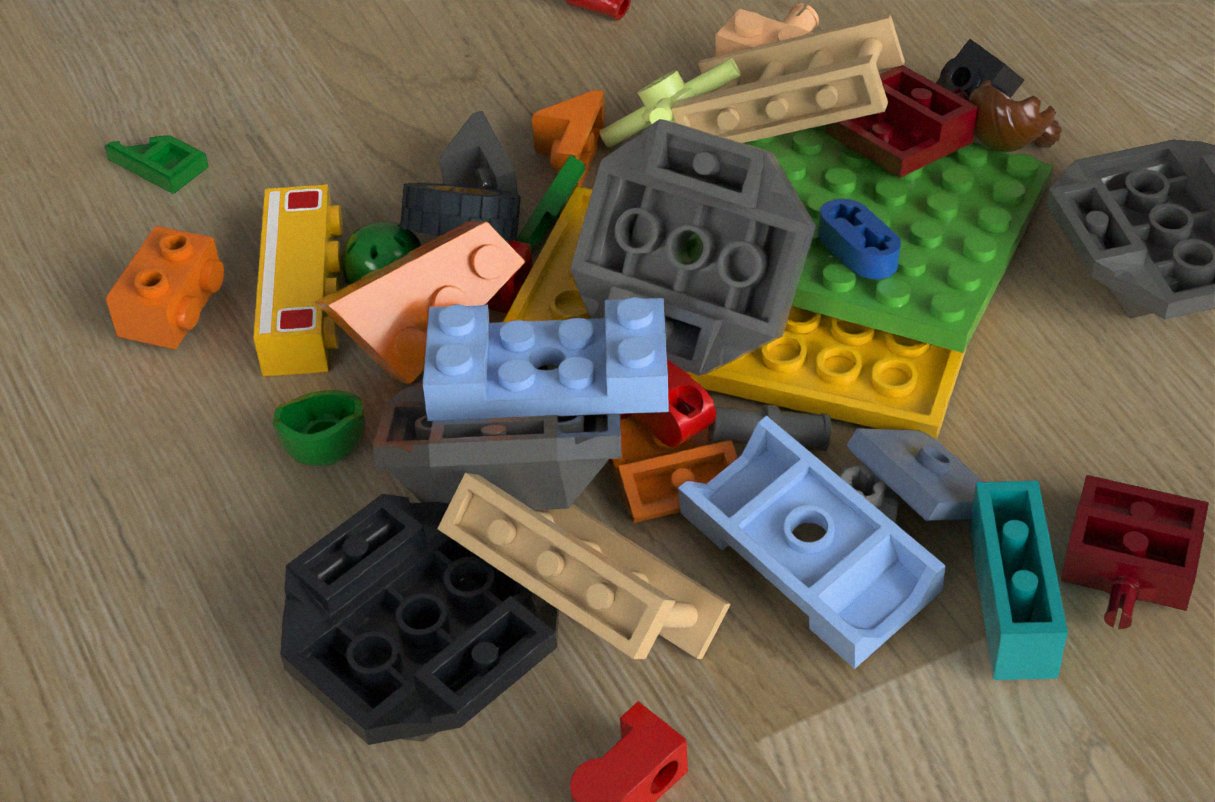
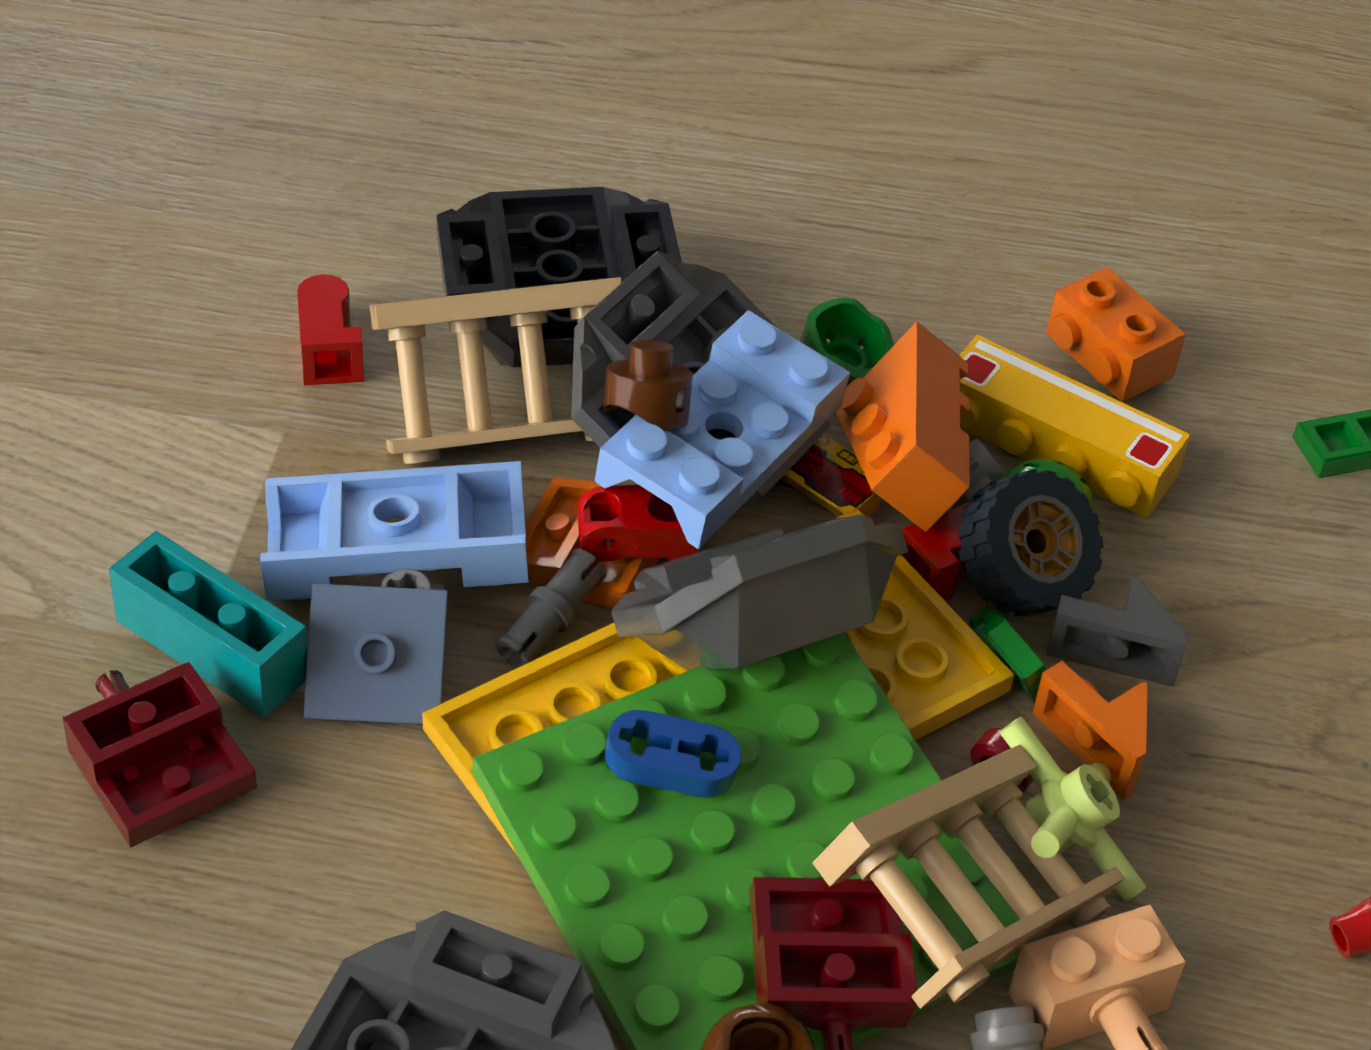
camera: 120 degrees right, 0 degrees up
(582, 375) = (650, 385): none -> reddish brown piece

